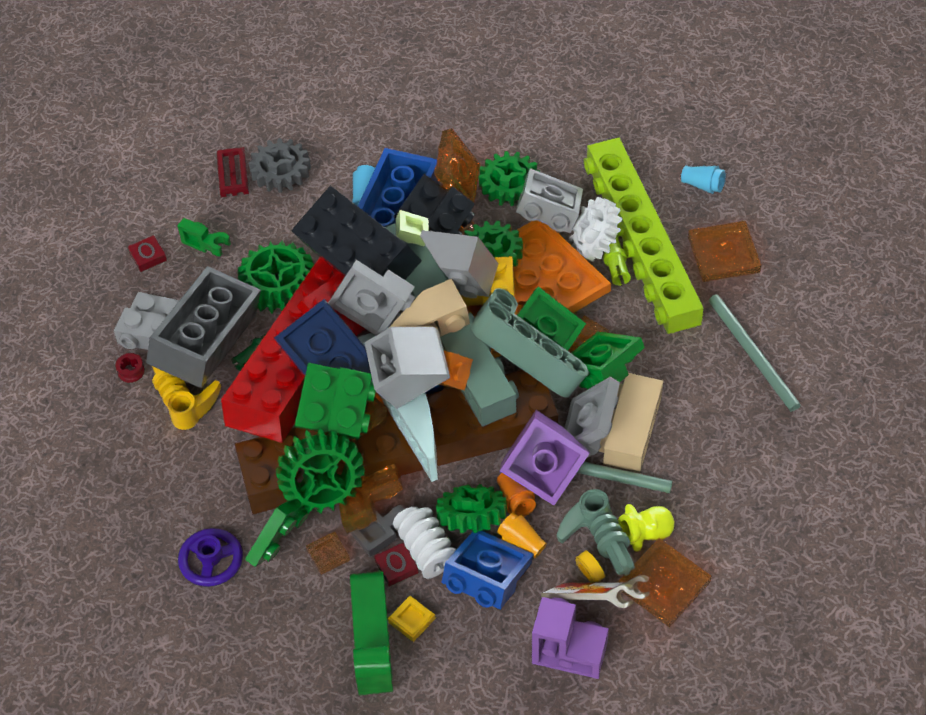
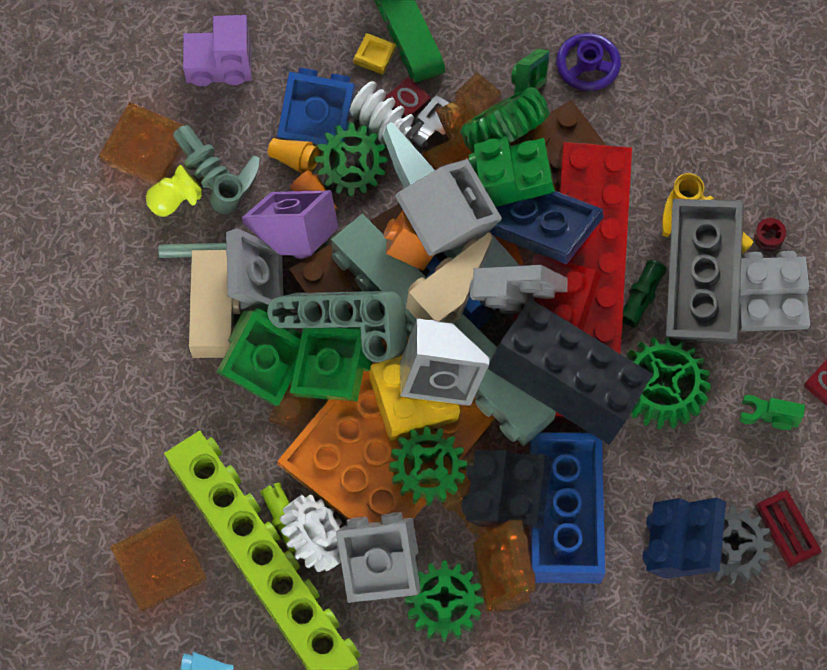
camera: 160 degrees right, 15 degrees up
(312, 165) = (685, 537): none -> dark blue plate
(360, 181) = (619, 548): medium azure cone -> none
(410, 227) = (511, 403): yellowish green plate -> none
(590, 567) = (218, 137): yellow tile -> none
(599, 591) = (208, 94): dark tan flag -> none
(754, 353) = (102, 438): sand green piece -> none

